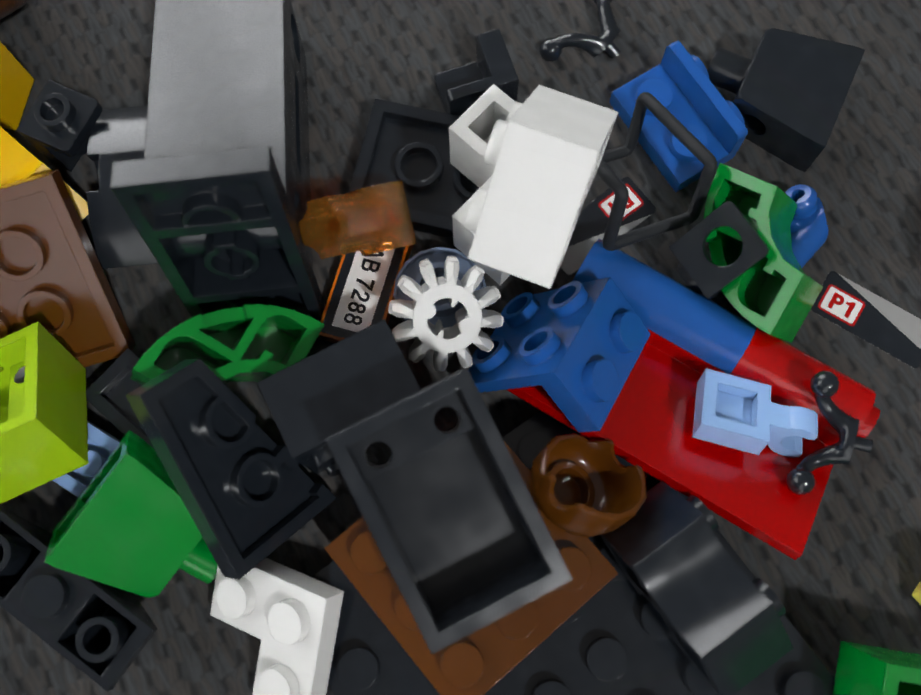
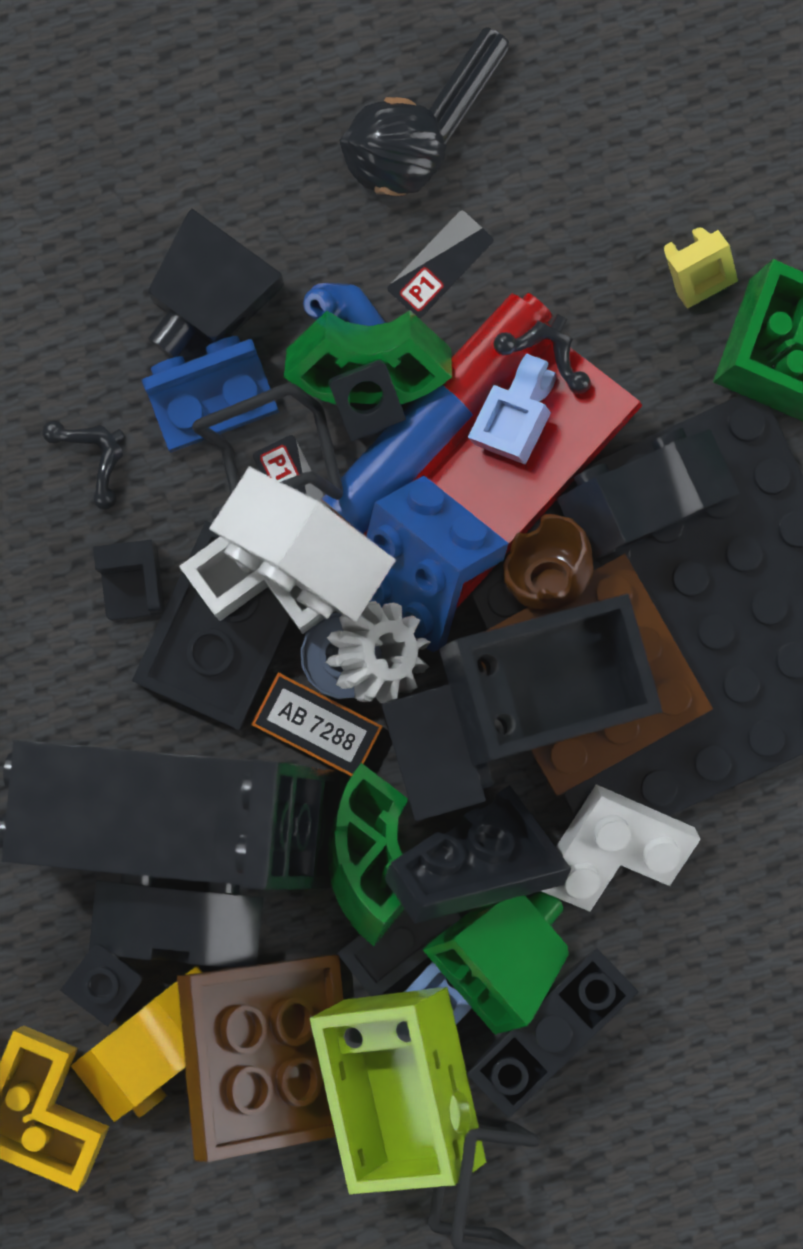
camera: 80 degrees left, 10 degrees up
(361, 220) = (276, 709): clear orange piece -> none

